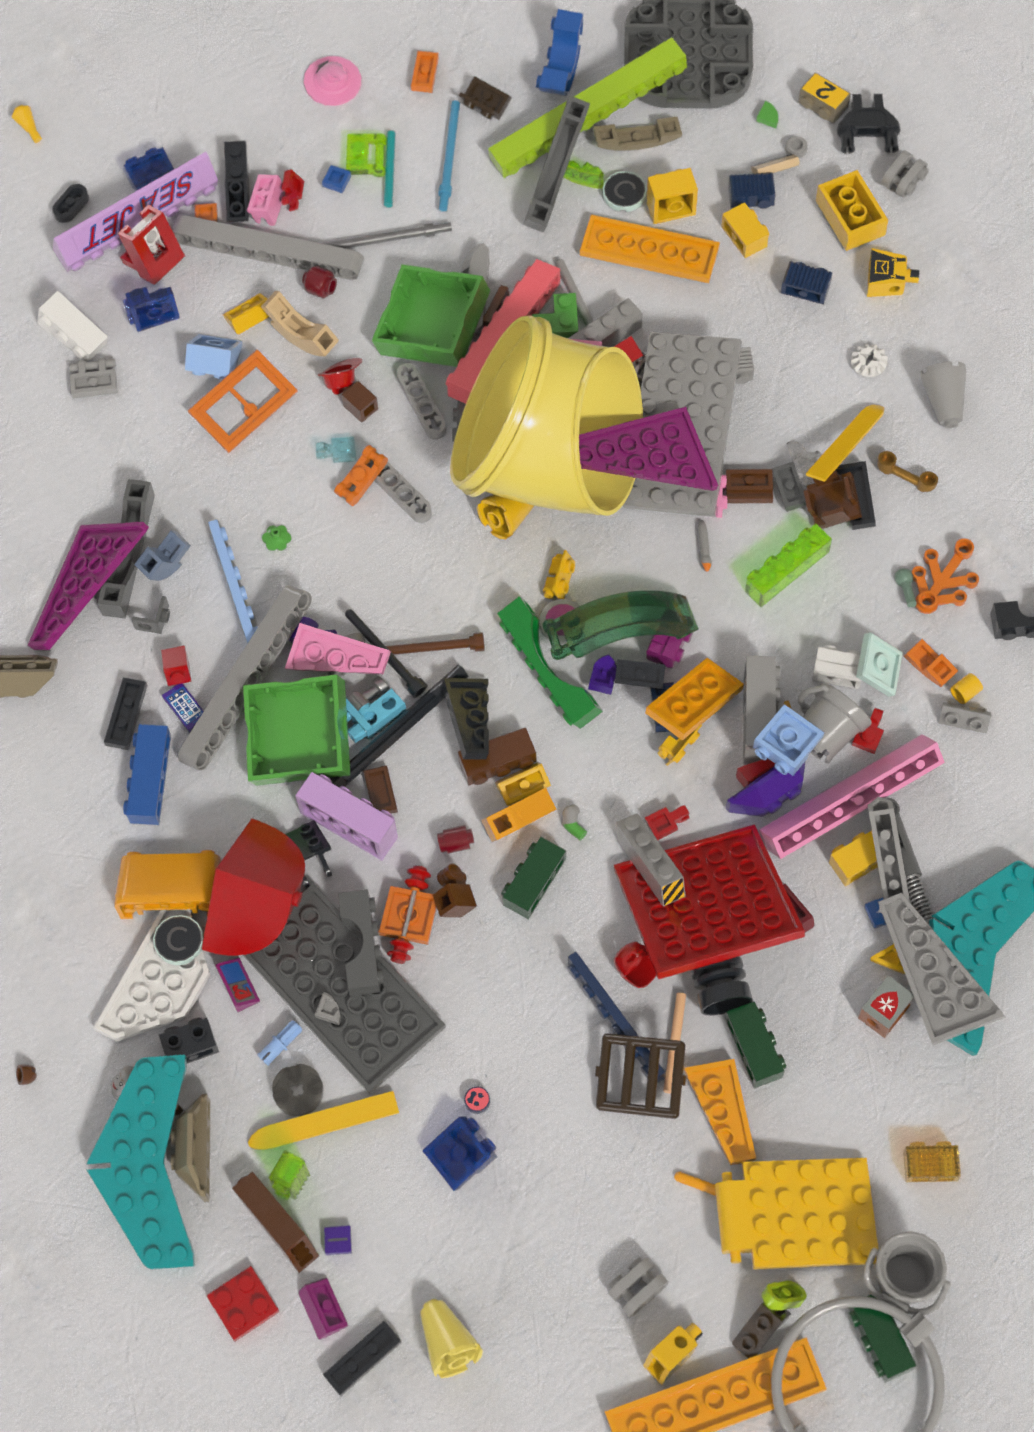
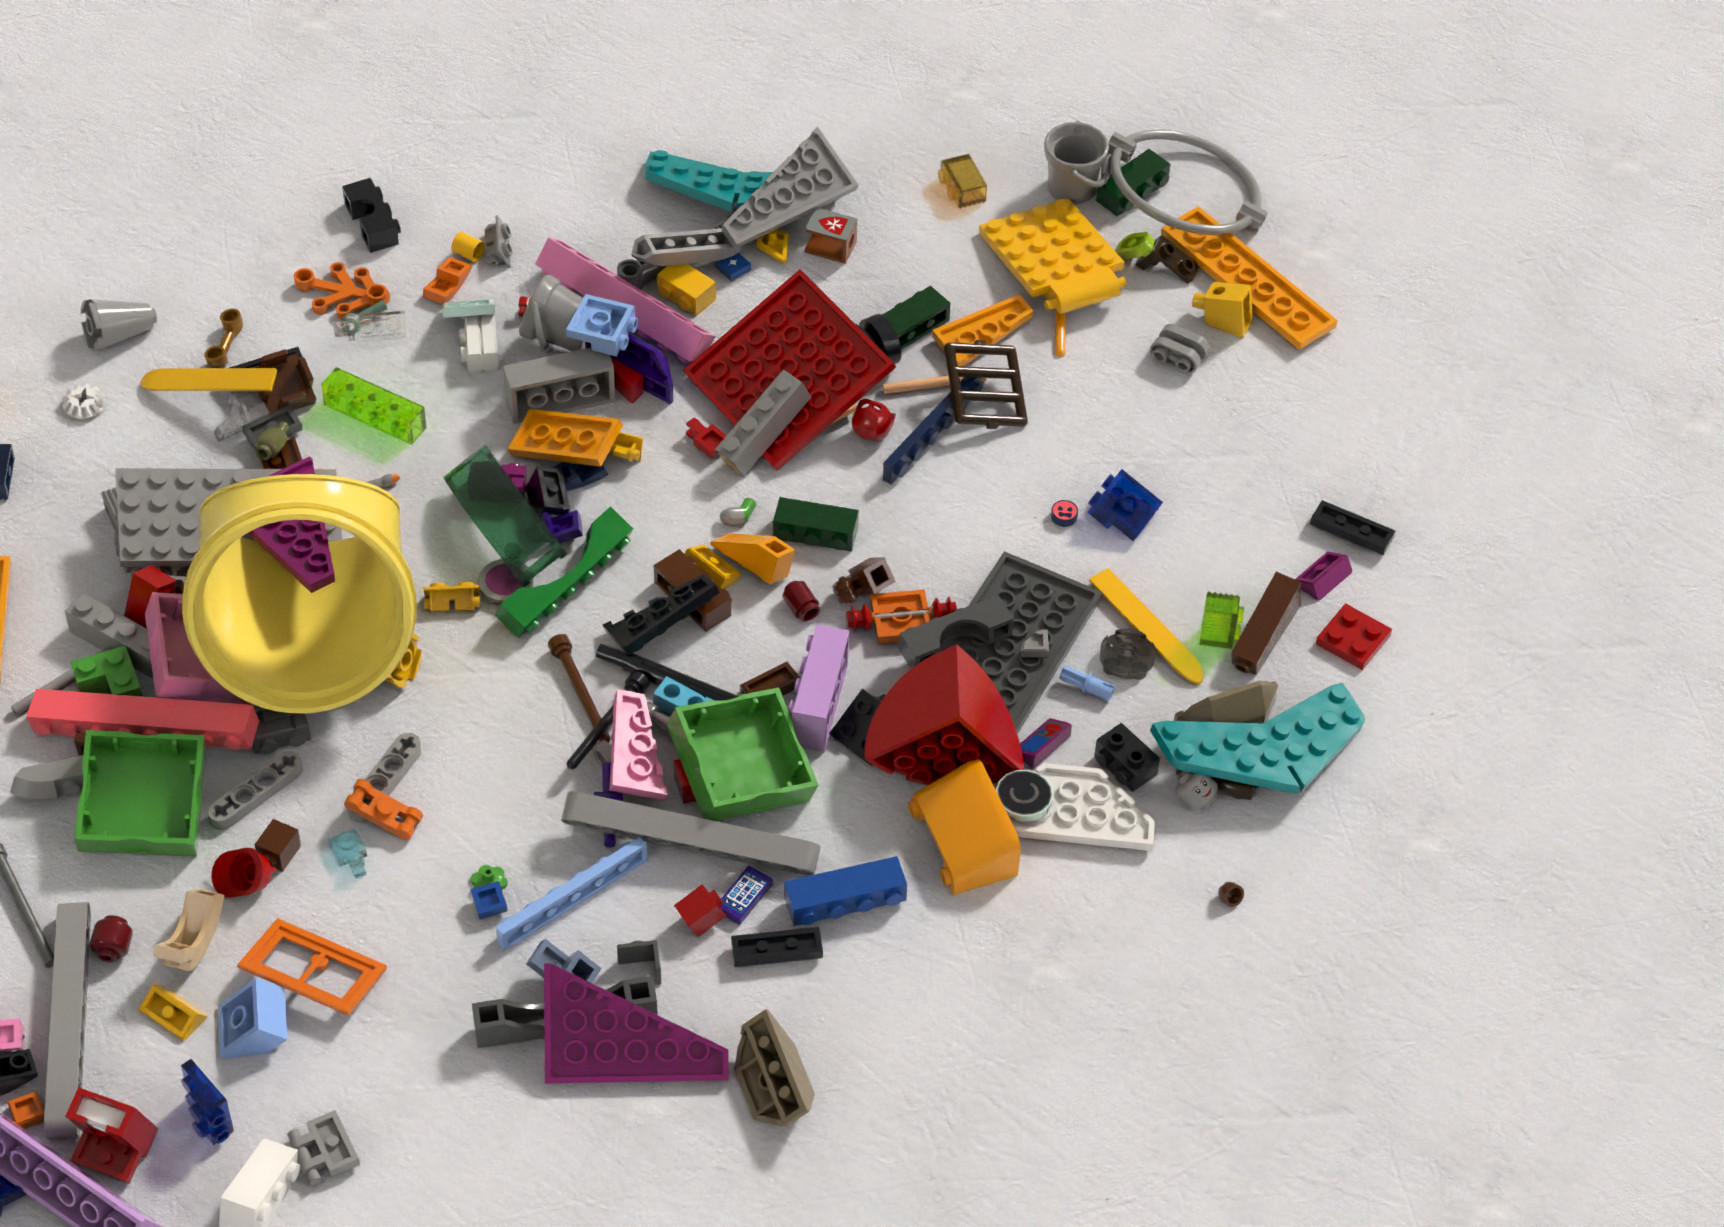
camera: 115 degrees left, 15 degrees down
(252, 528) = (489, 900): none -> blue plate
(338, 1240) = (1253, 580): dark purple tile -> none
(447, 1340) = (1303, 462): light yellow cone -> none
(766, 477) = (271, 441): none -> olive plant
(885, 587) = (373, 327): none -> clear hinge

